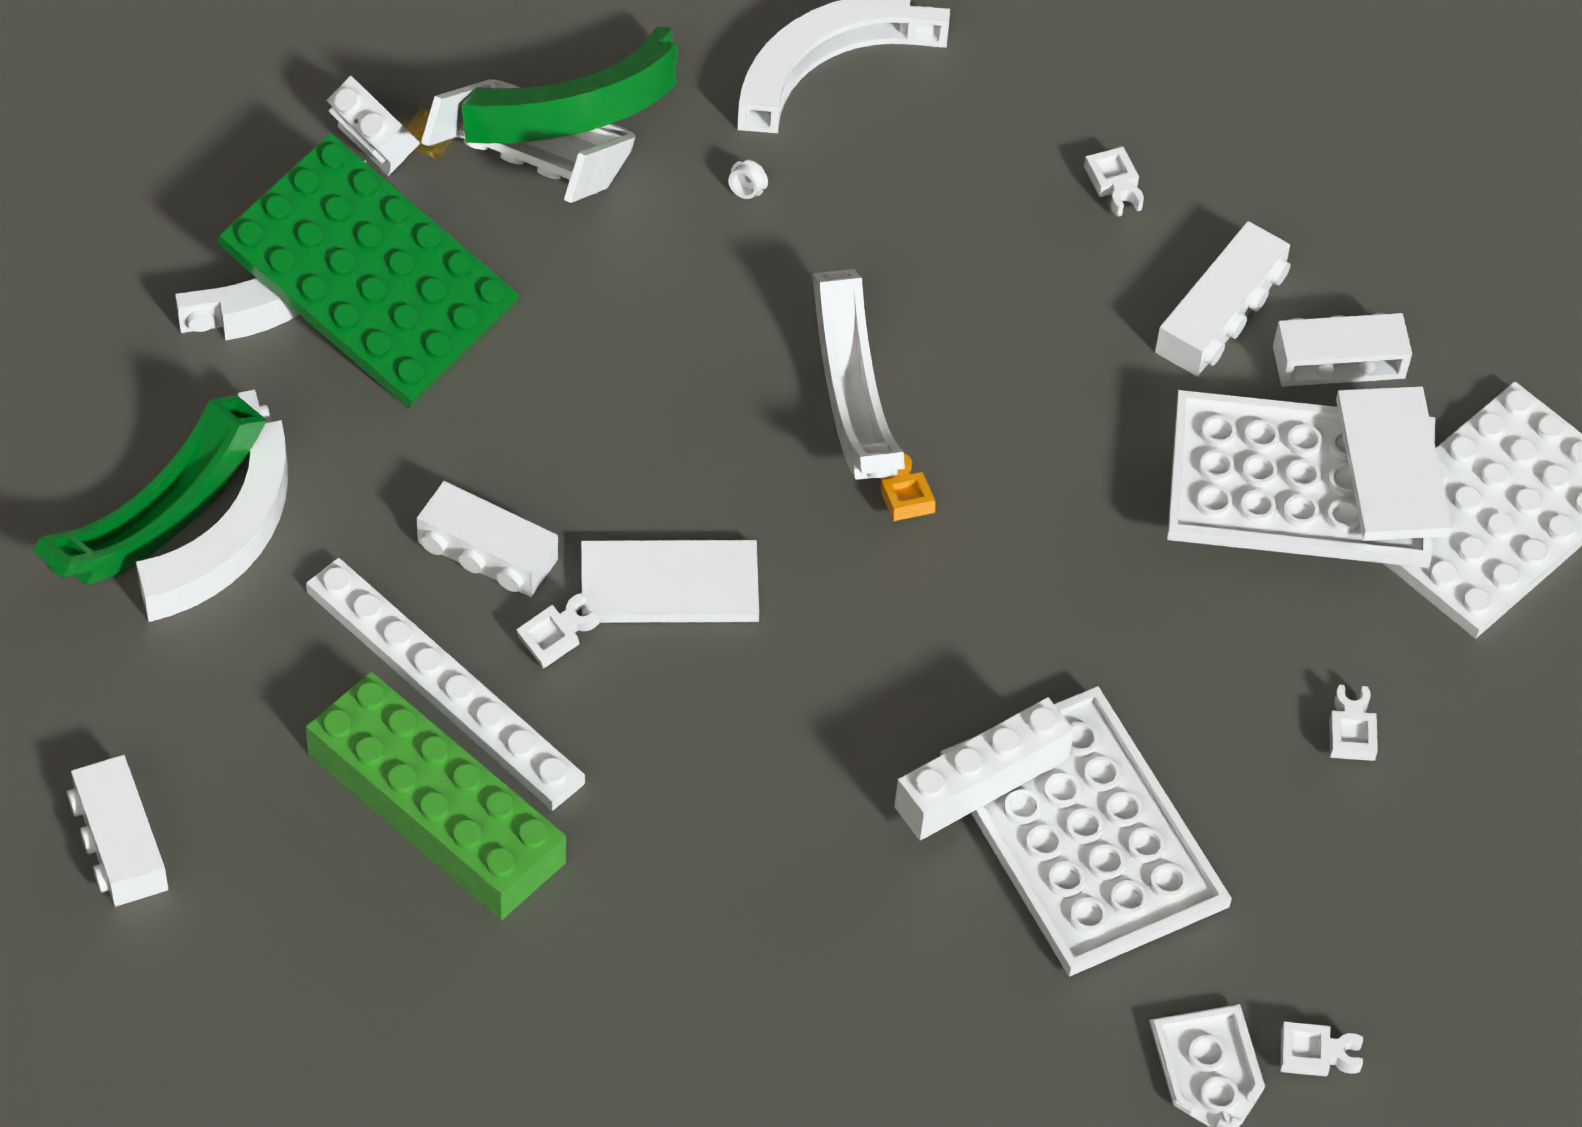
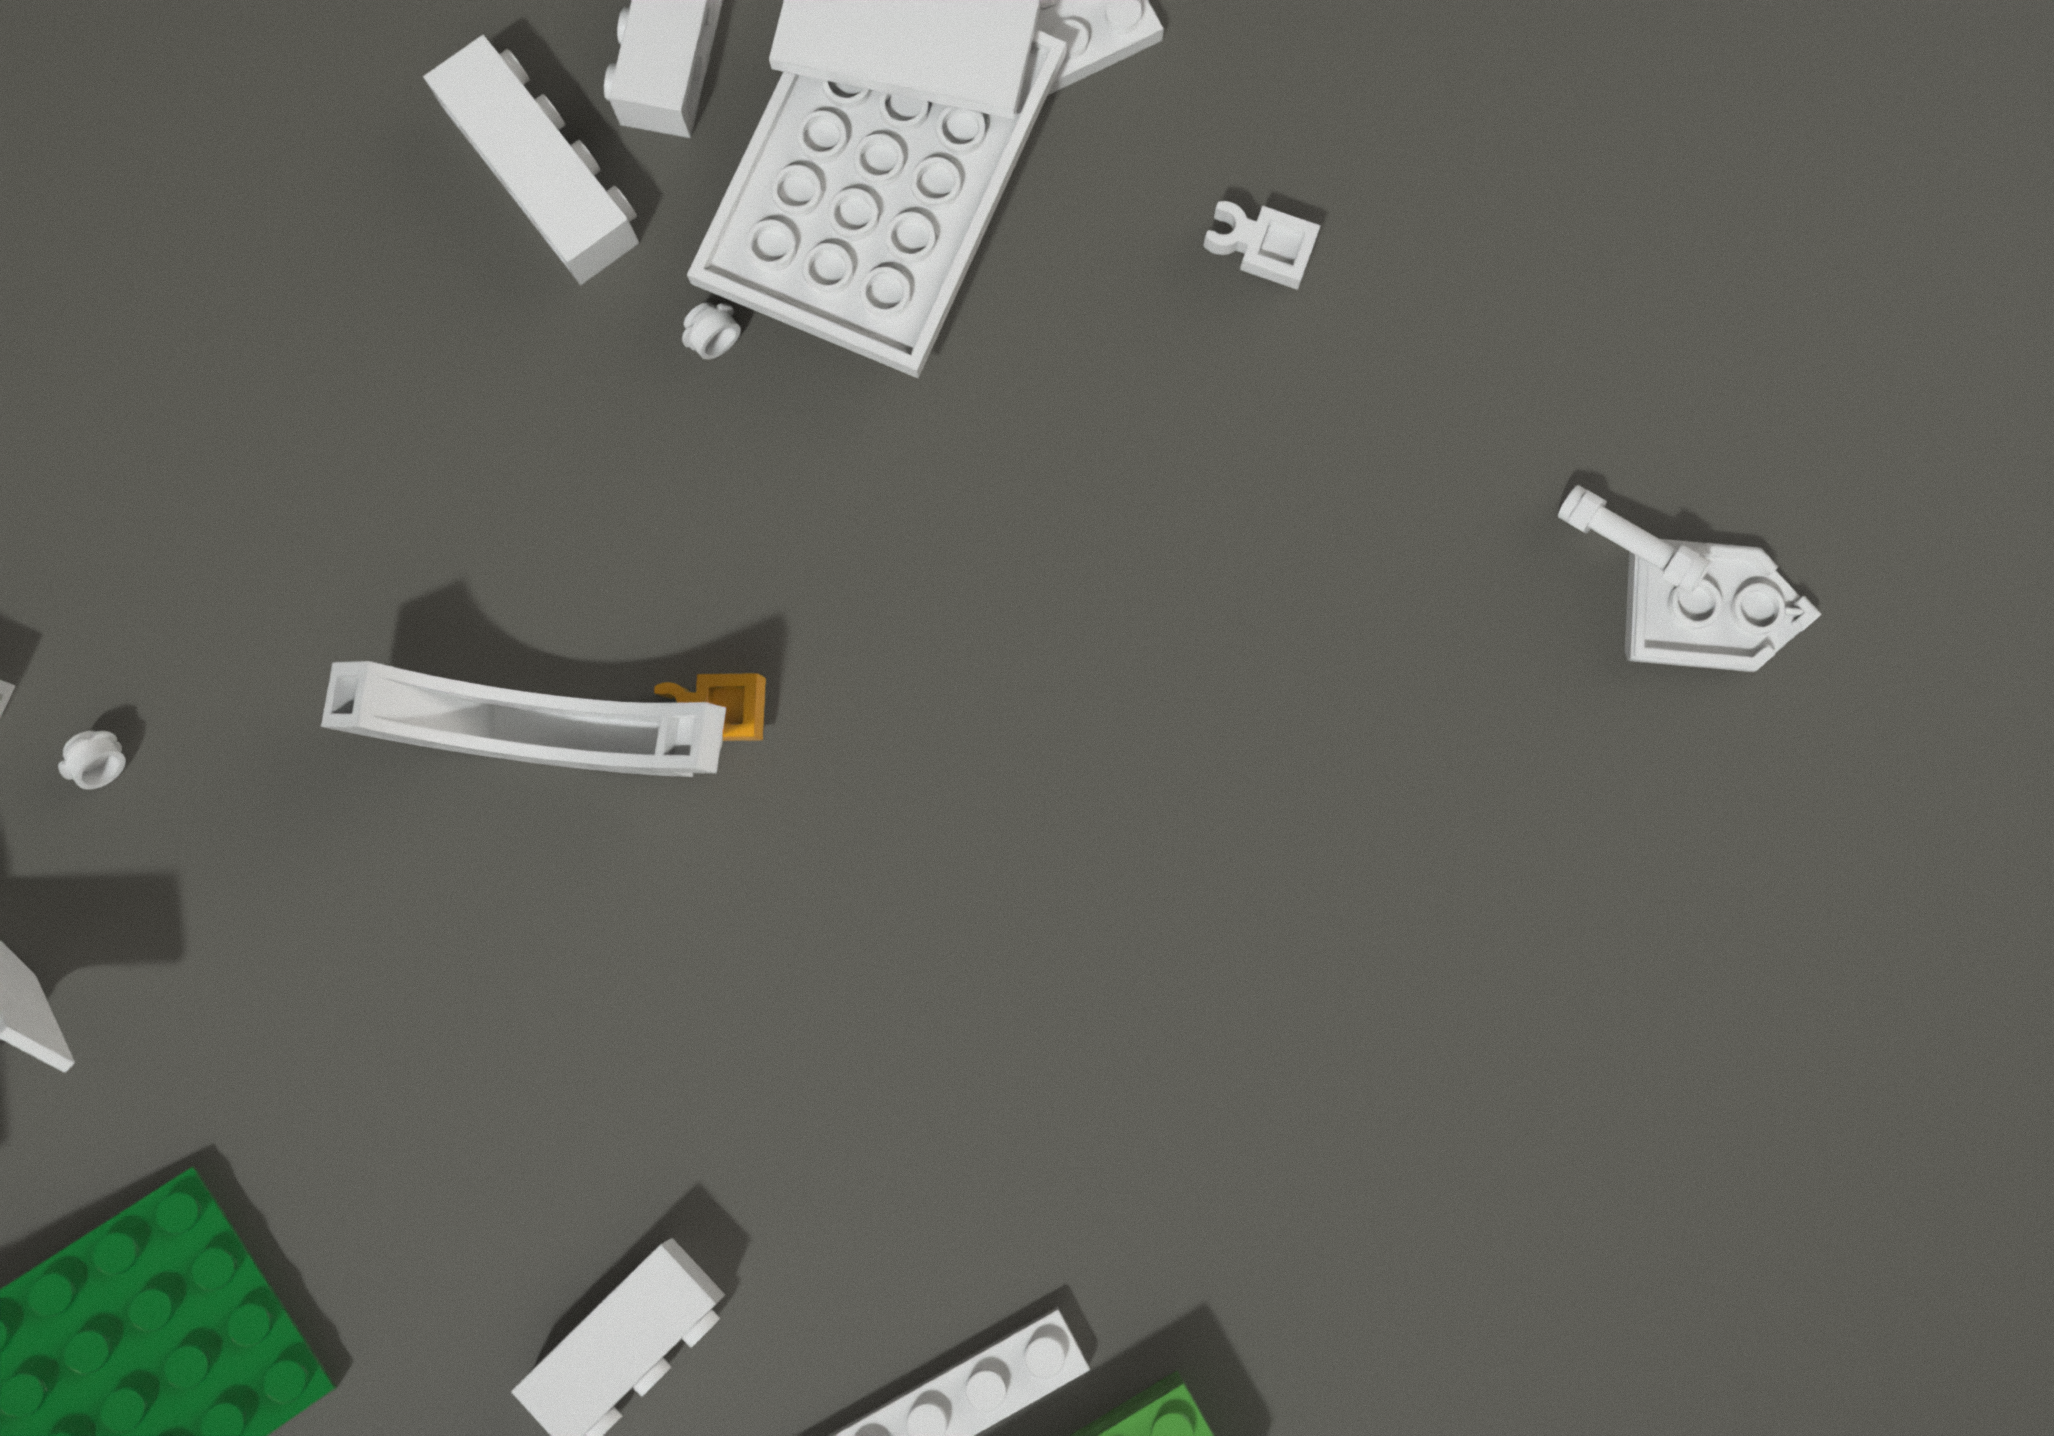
camera: 70 degrees left, 25 degrees up
(553, 634) = (812, 1289): white plate -> none
(671, 580) = (763, 1091): white tile -> none
(983, 768) = (1233, 754): white brick -> none
(1100, 845) = (1328, 647): white plate -> none
(1115, 175) = (268, 233): white plate -> none
(1153, 425) = (710, 329): none -> white plate
(1227, 1021) = (1680, 566): none -> white bar
(1311, 1050) = (1723, 469): white plate -> none

